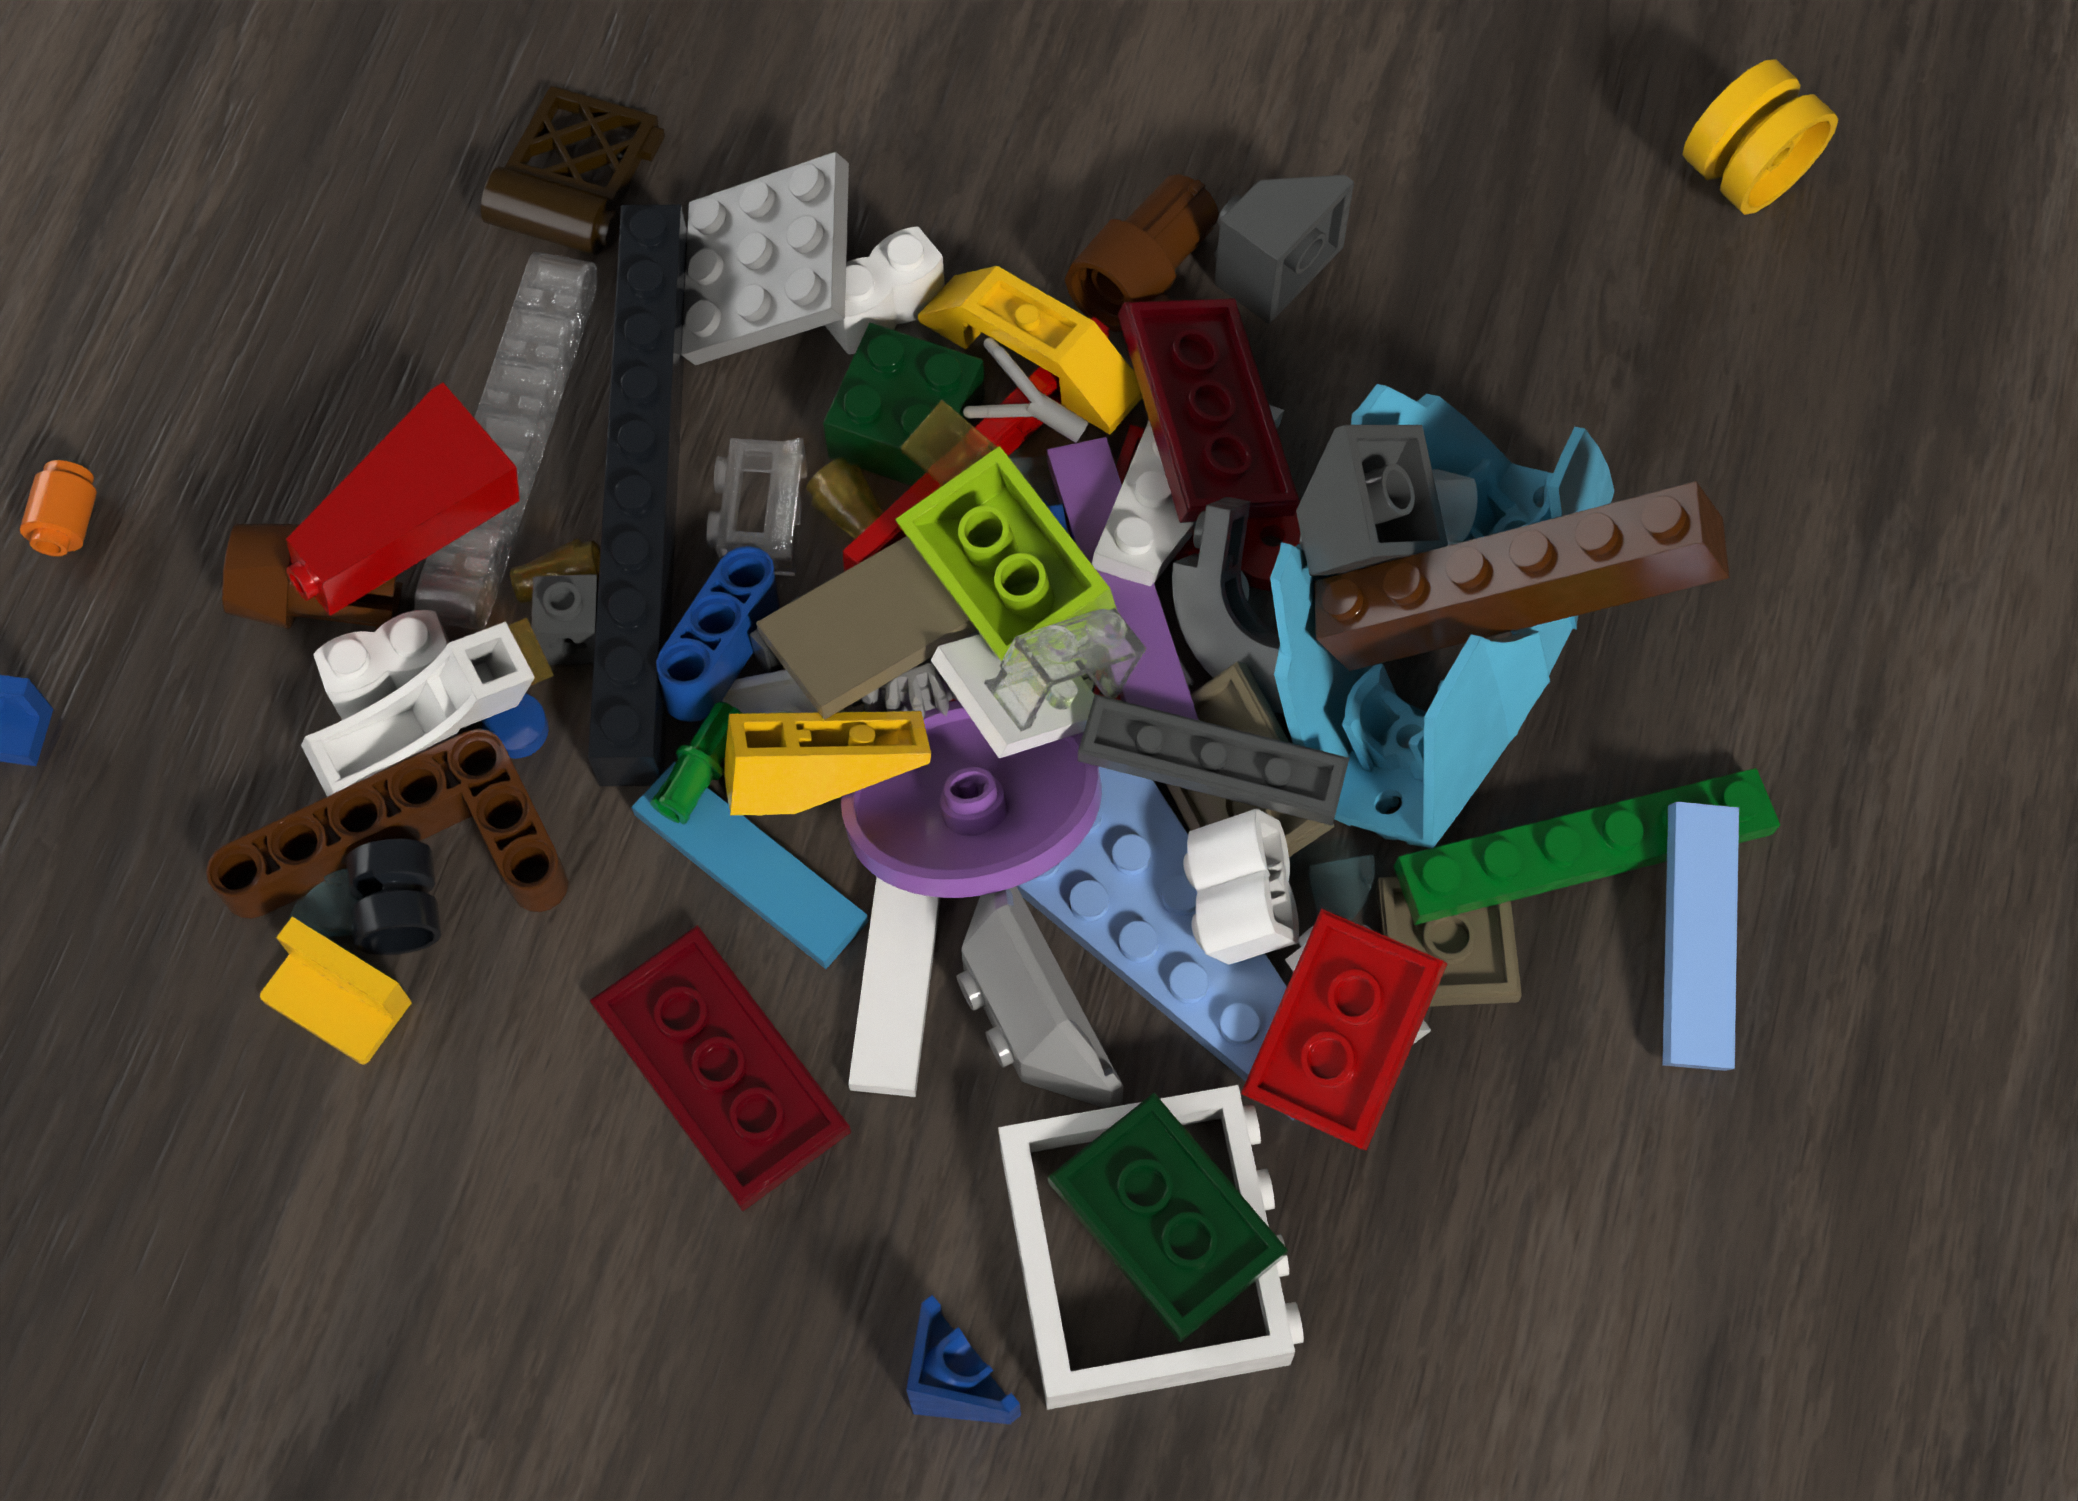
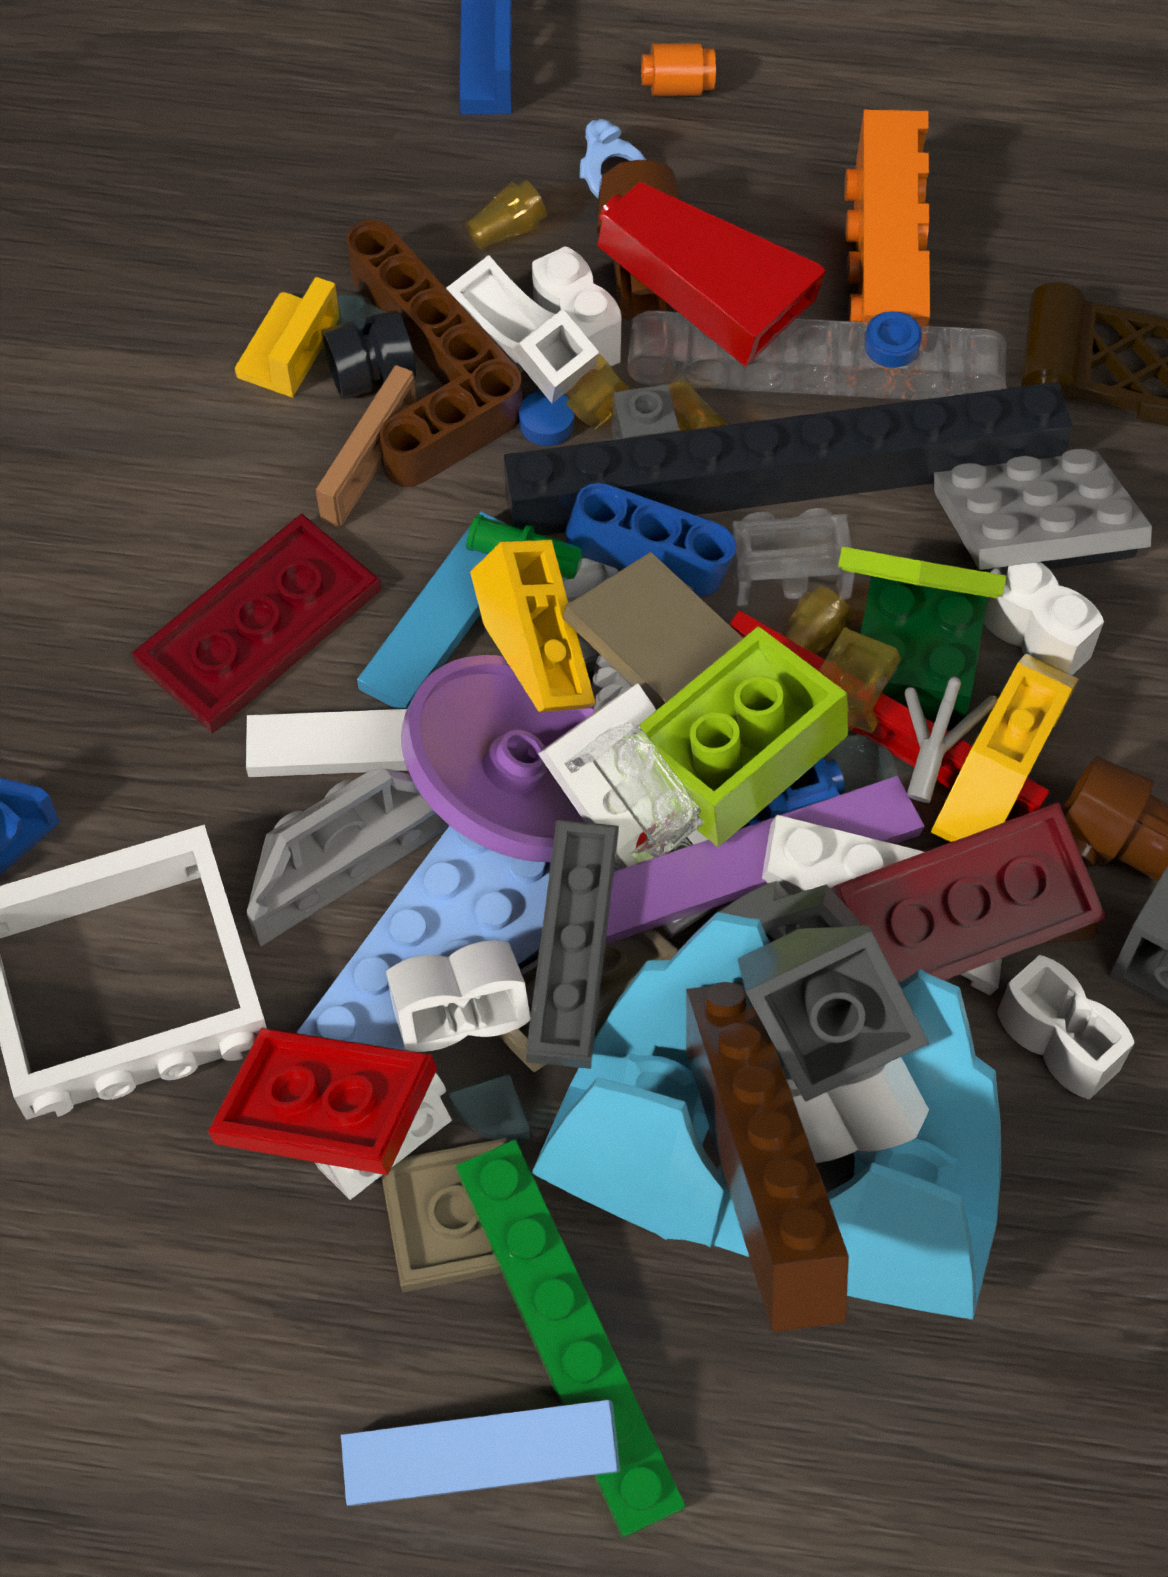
camera: 80 degrees right, 5 degrees down
(152, 610) = (601, 145): none -> light blue piece
(221, 724) = (508, 214): none -> clear yellow cone
(364, 329) = (889, 217): none -> orange wedge
(519, 915) = (362, 451): none -> medium nougat tile
(524, 348) = (893, 339): none -> blue tile
(832, 374) = (922, 572): none -> lime tile
(1167, 1216) = (128, 970): dark green tile -> none
(1338, 358) = (1076, 1036): none -> white brick

